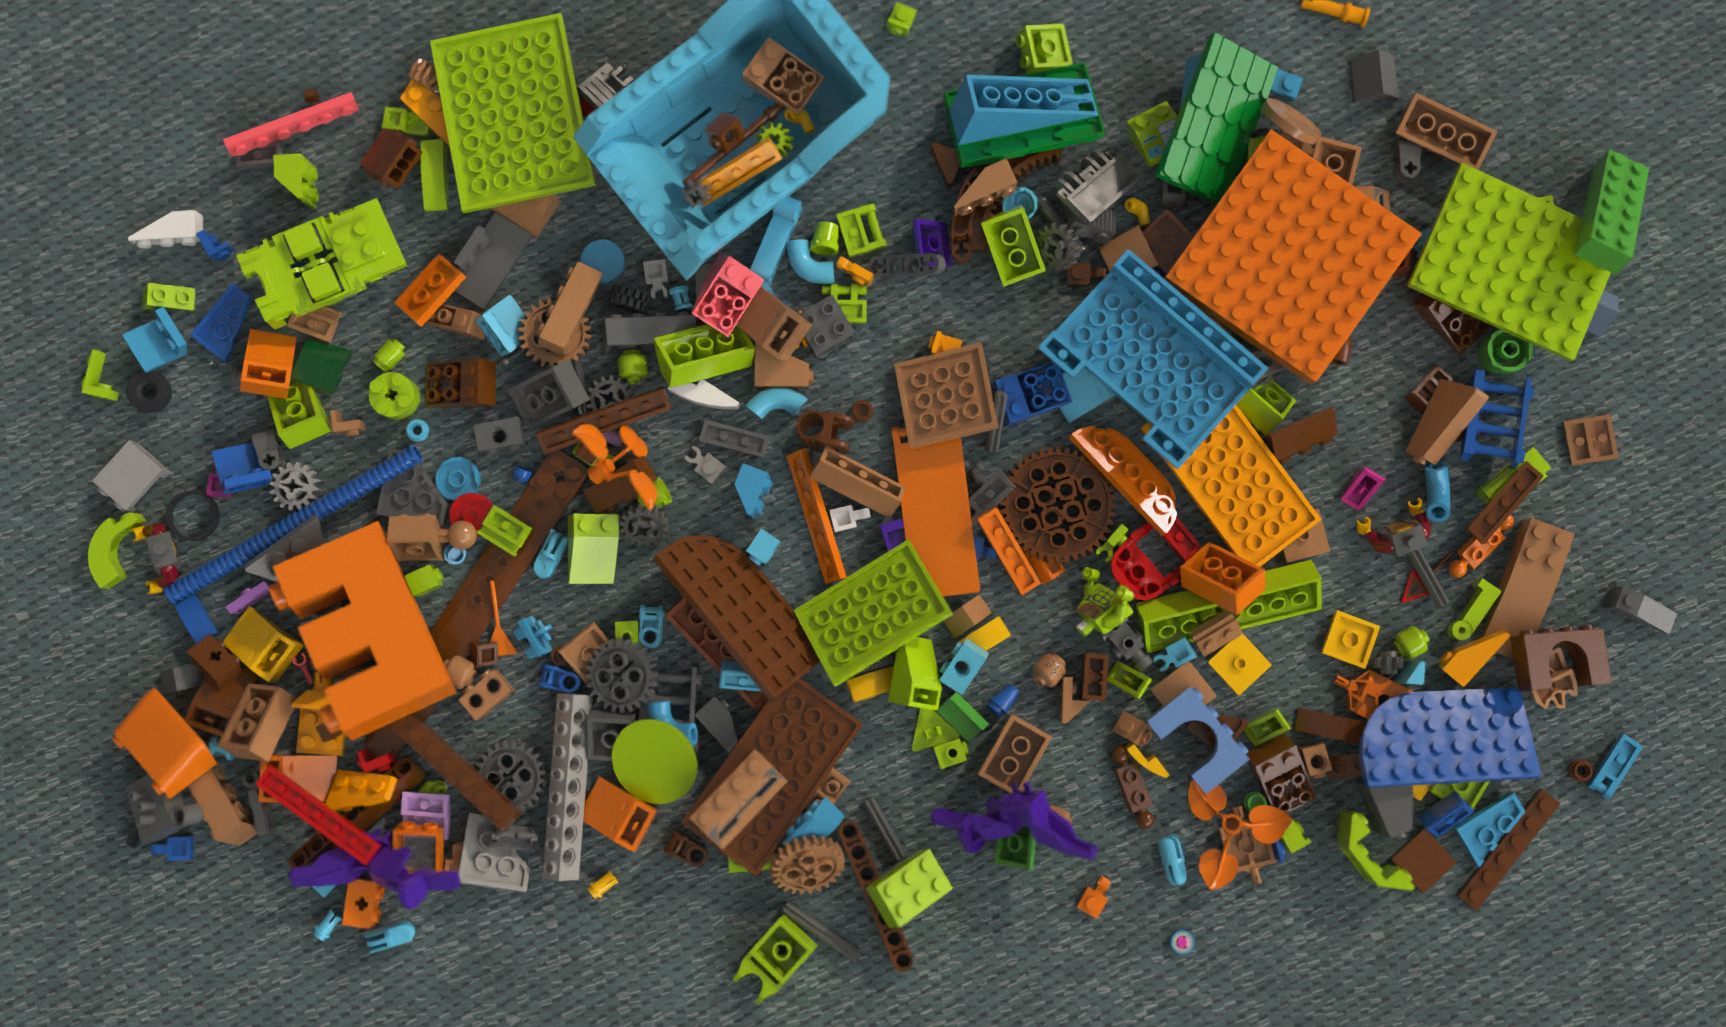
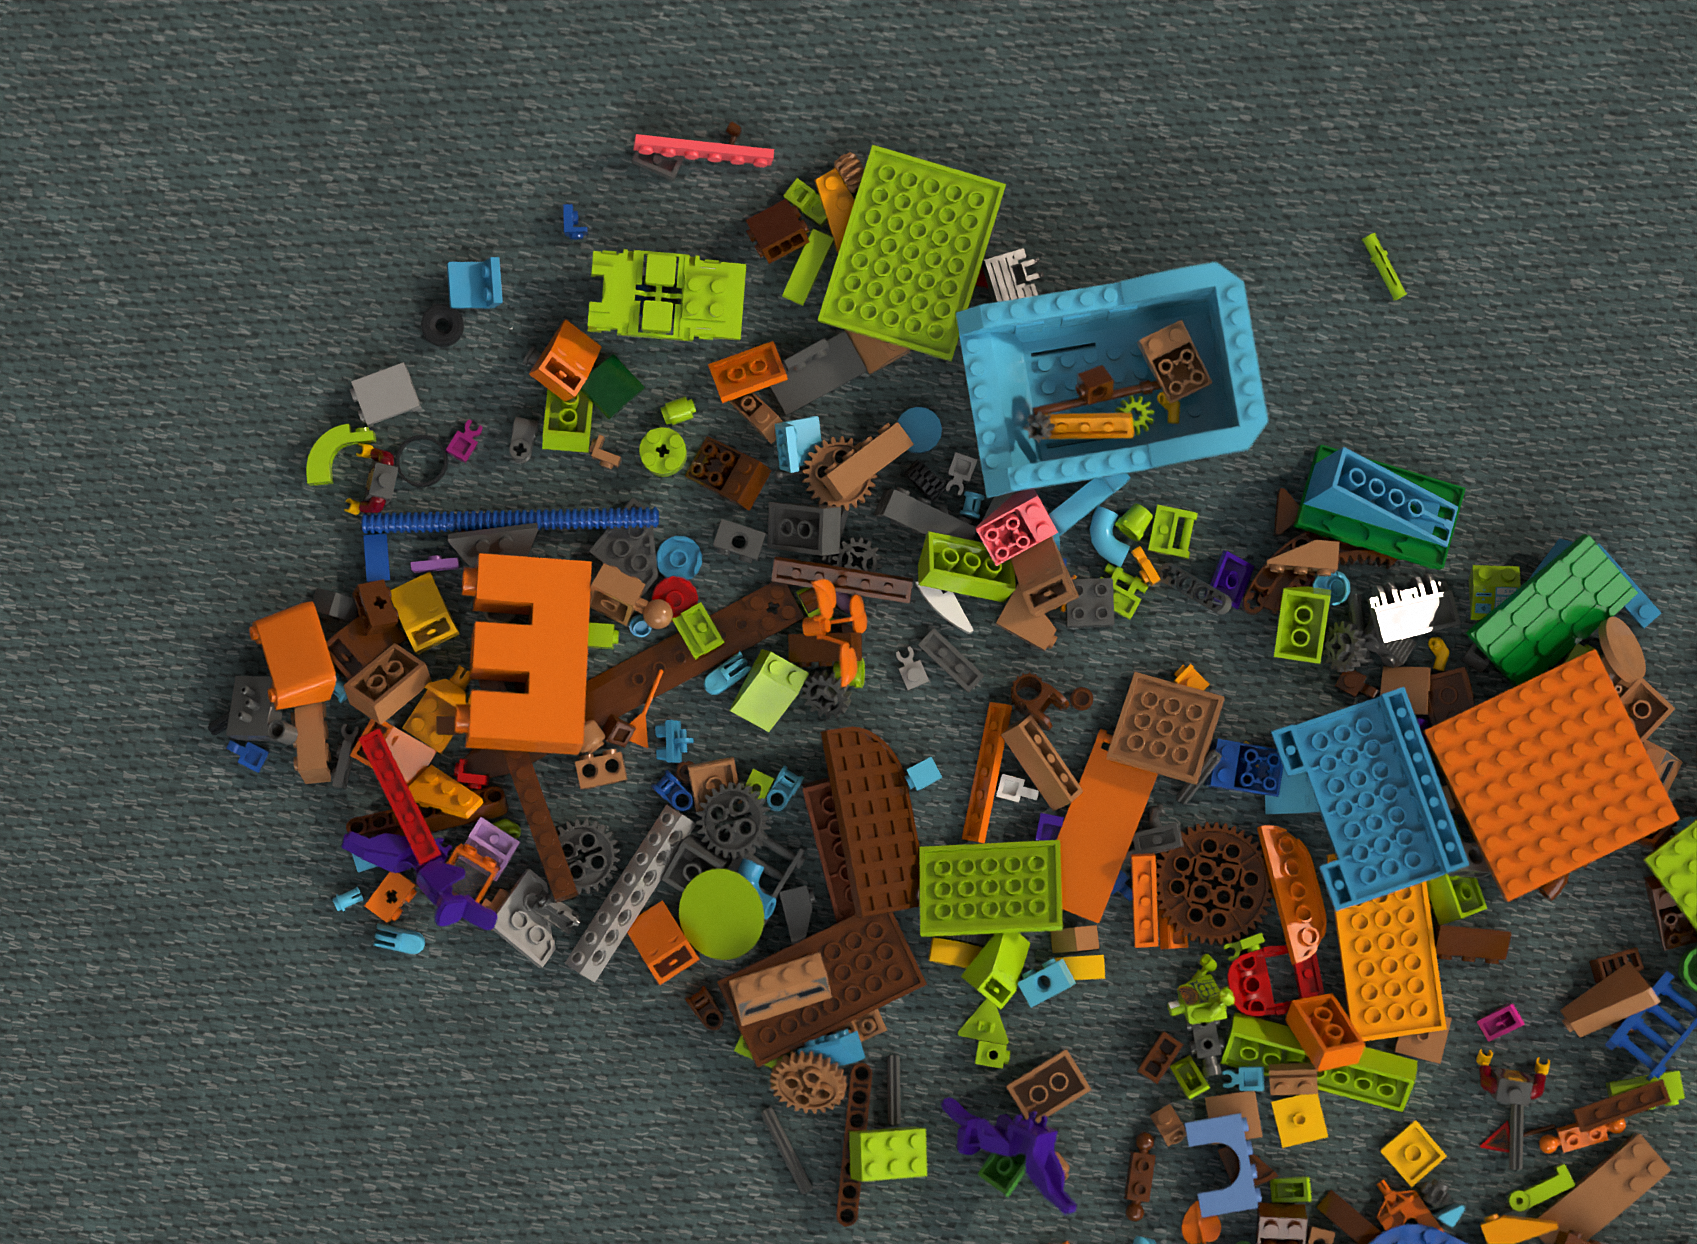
camera: 30 degrees right, 0 degrees up
(90, 383) = (401, 301): lime bracket -> none
(168, 297) = (504, 246): lime bracket -> none
(170, 229) = (546, 187): white slope -> none
(223, 322) = (542, 298): blue wing -> none
(239, 468) = (489, 442): blue bracket -> none
(294, 495) = (535, 477): light grey gear -> none
(297, 176) = (682, 200): lime slope -> none
(304, 668) = (449, 655): coral hand -> none
(318, 323) = (628, 348): medium nougat plate -> none
(411, 428) = (666, 486): medium azure plate -> none
(522, 473) = (741, 586): blue hinge -> none
(602, 885) = (613, 999): yellow pin -> none
(632, 366) = (894, 543): lime head -> none
(734, 677) = (836, 879): medium azure slope -> none
(751, 487) = (943, 713): dark azure slope -> none
(772, 964) = (726, 1151): lime brick -> none
(776, 398) = (1008, 644): medium azure cylinder -> none
(901, 19) = (1317, 354): lime bracket -> none
(962, 717) = (1020, 1028): bright green panel -> none
(1003, 700) = (1065, 1033): blue cone -> none
(1043, 47) = (1434, 454): lime plate -> none
(1049, 670) = (1122, 1029): medium nougat head -> none
(1069, 707) = (1121, 1071): medium nougat slope -> none
(1150, 763) = (1169, 1165): yellow slope -> none
(1411, 642) = (1467, 1187): lime head -> none
(1437, 491) = (1569, 1063): dark azure cylinder -> none

